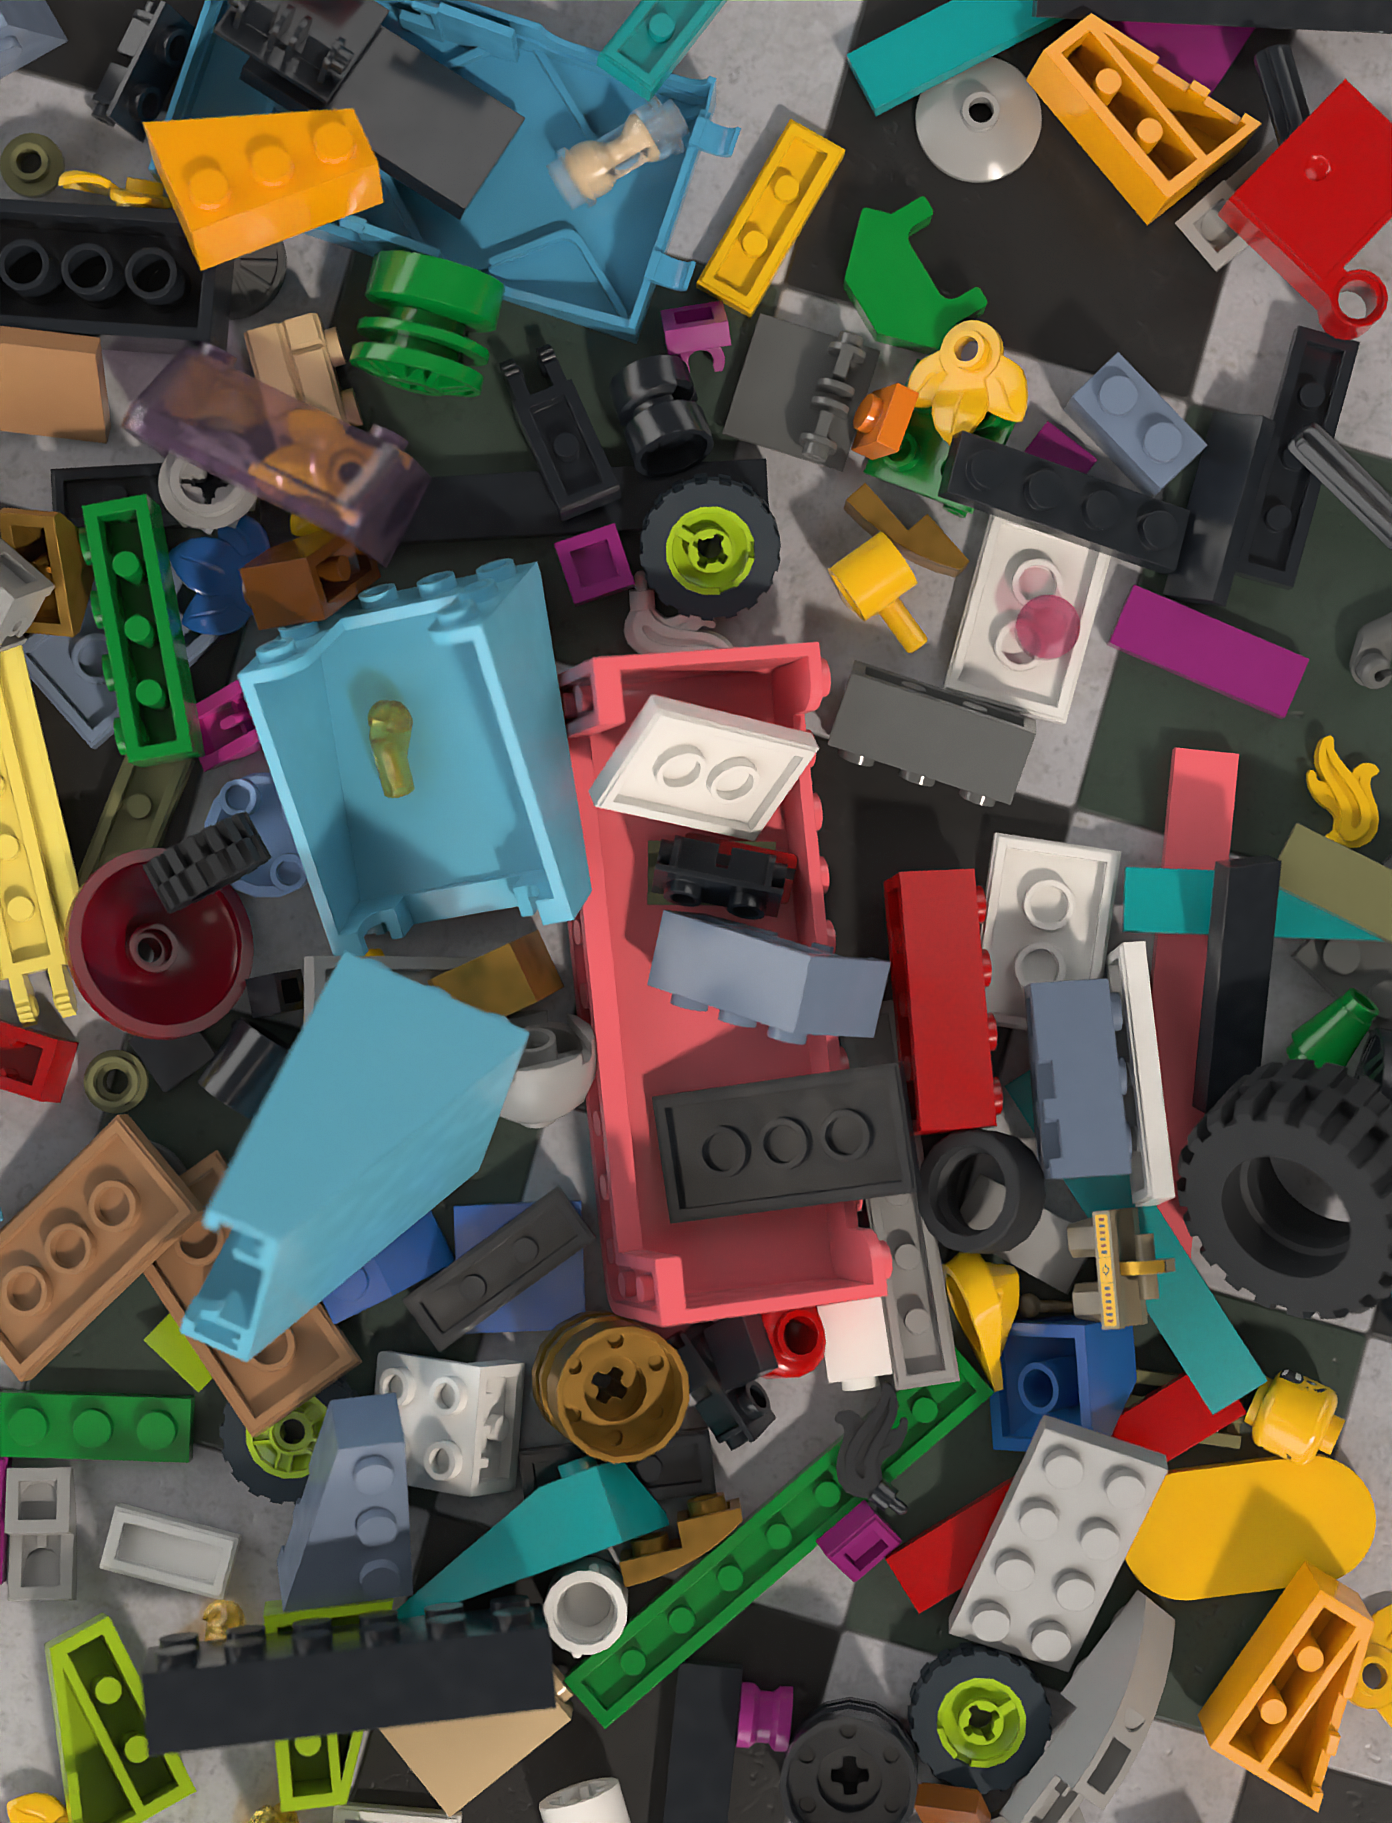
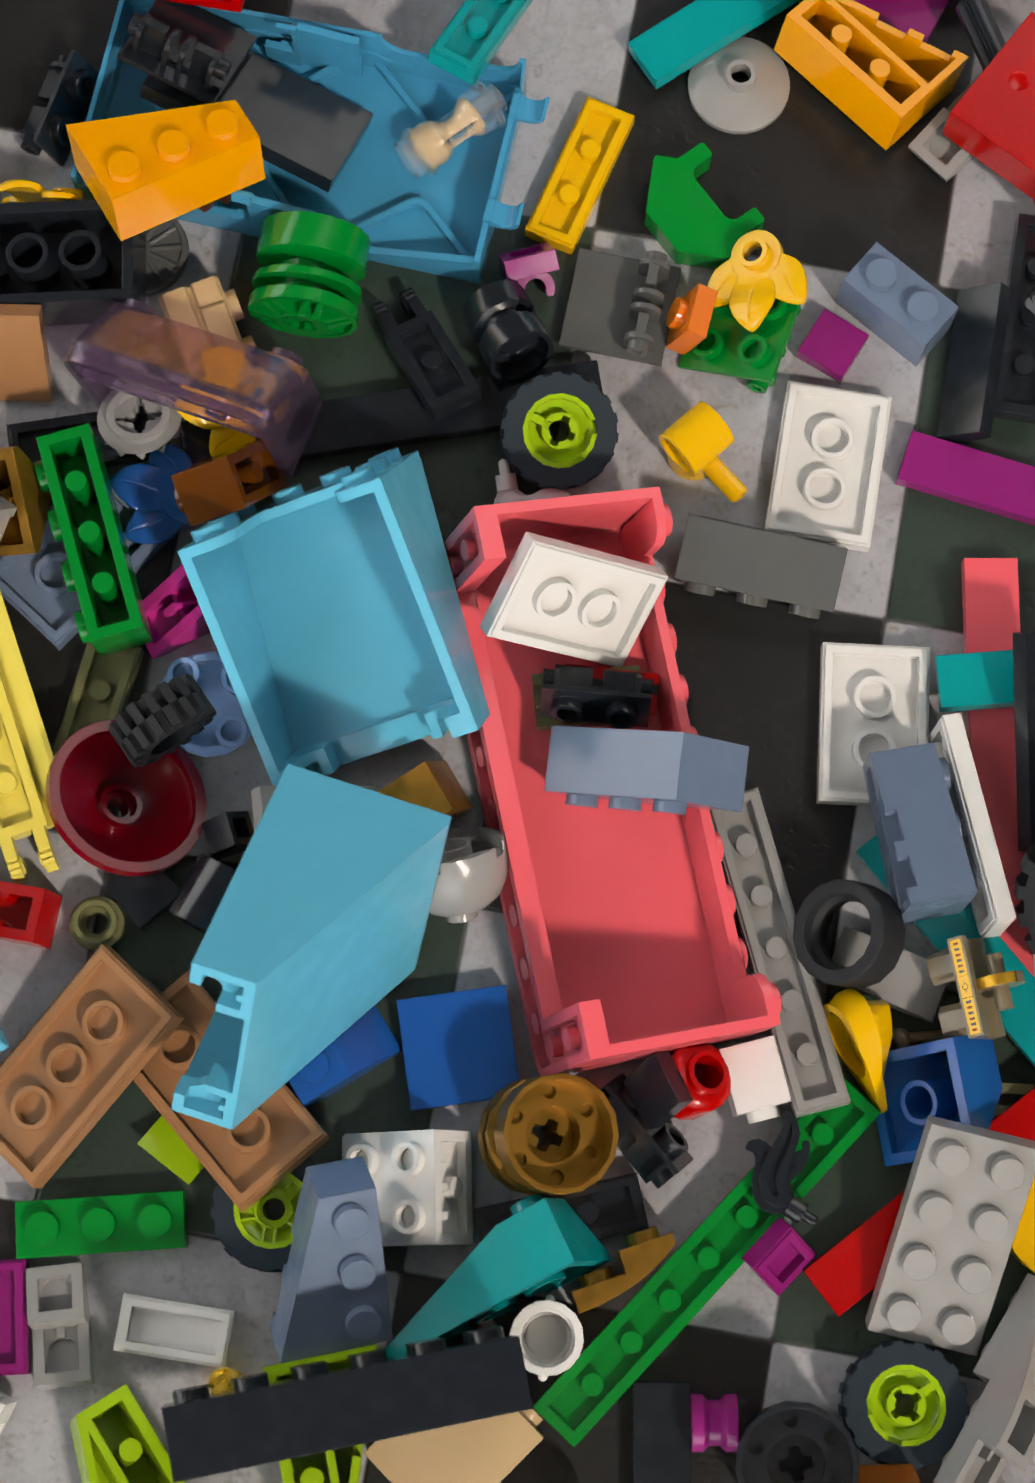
camera: 10 degrees left, 10 degrees down
(390, 741) = (308, 609): clear yellow arm -> none
(499, 1268) = (441, 1047): black tile -> none
(594, 564) = (465, 454): magenta tile -> none
(787, 1143) = (678, 912): black tile -> none
(921, 544) = (738, 410): pearl gold slope -> none
(942, 999) = (795, 780): red brick -> none
(1047, 627) = (845, 470): clear pink tile -> none
(1063, 502) = (846, 367): black plate -> none

